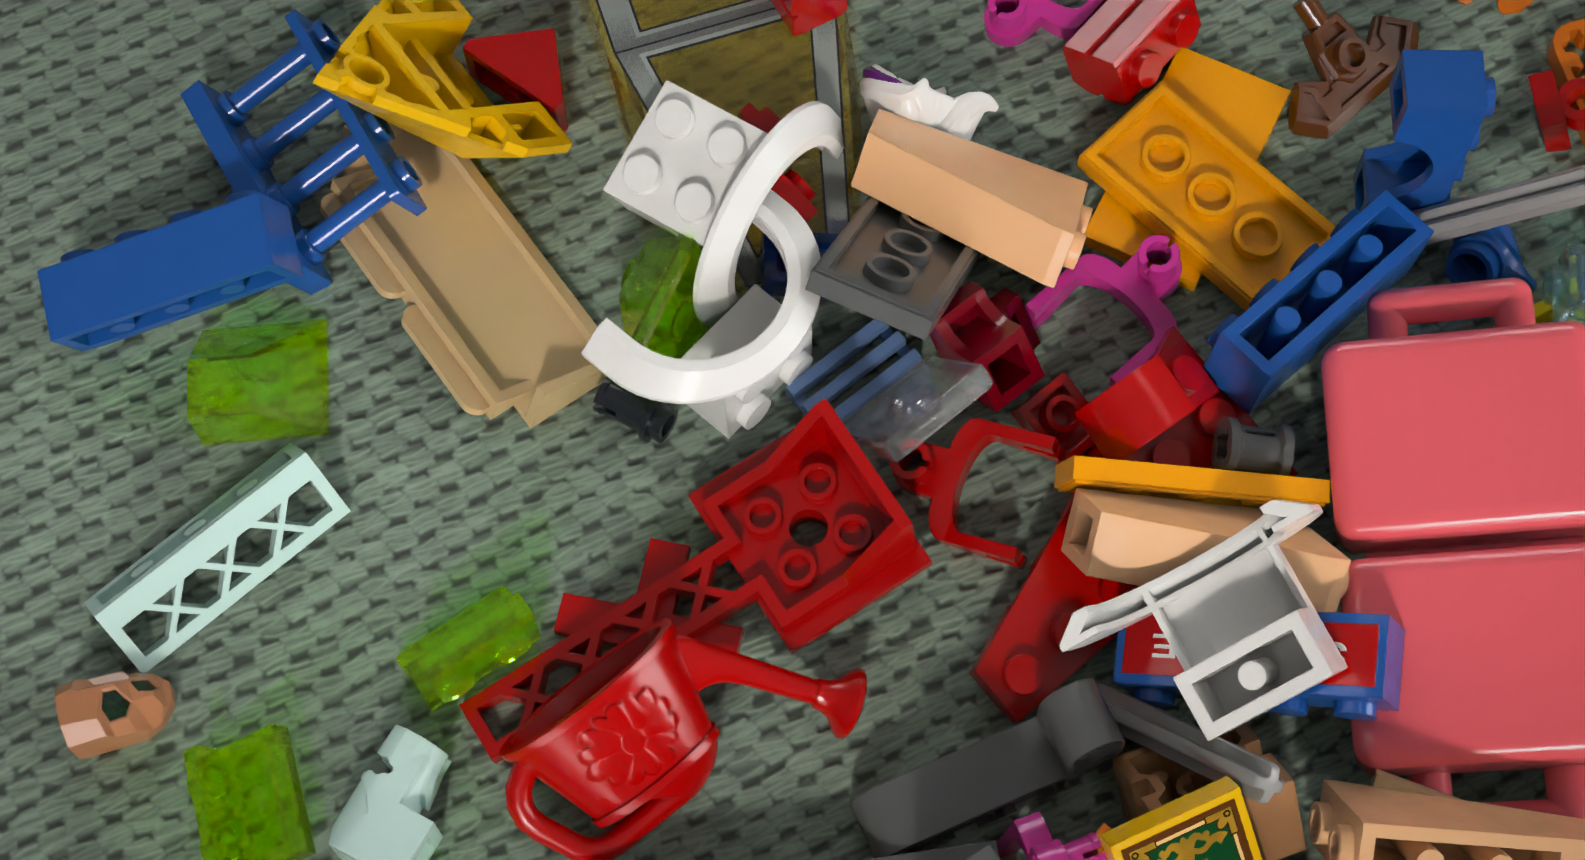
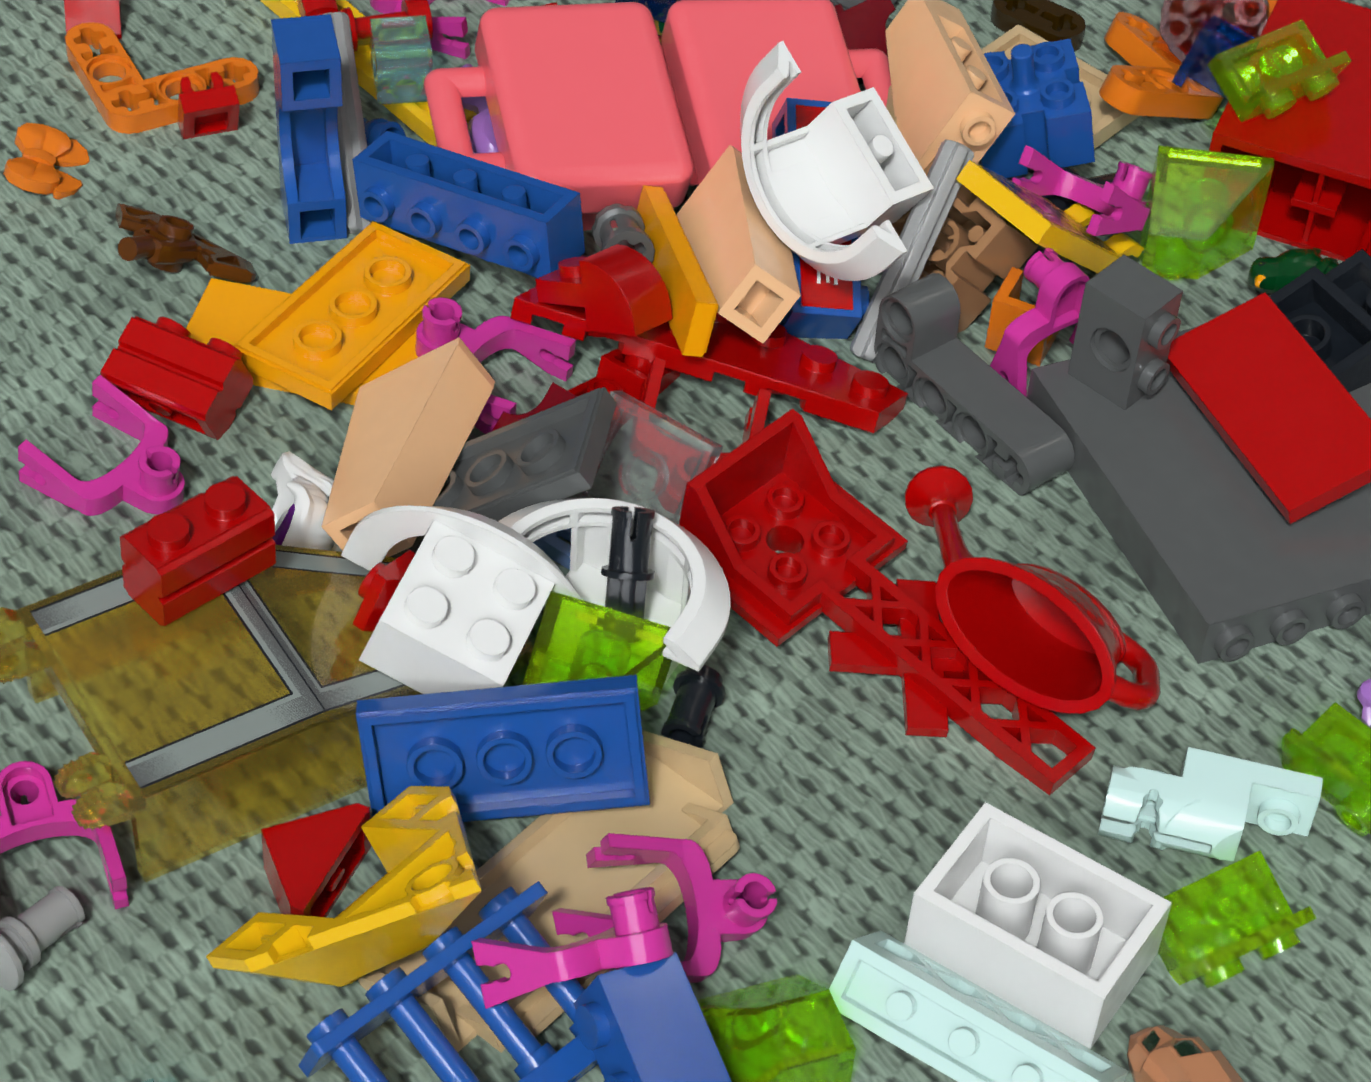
camera: 110 degrees left, 20 degrees down
(285, 619) = (1037, 924): none -> white brick
(298, 227) = (616, 940): none -> dark pink piece
(399, 376) = (709, 903): none -> dark pink piece
(469, 647) = (998, 764): clear neon green bracket -> none
(571, 211) = (511, 747): none -> blue tile
(725, 322) = (629, 560): none -> black axle

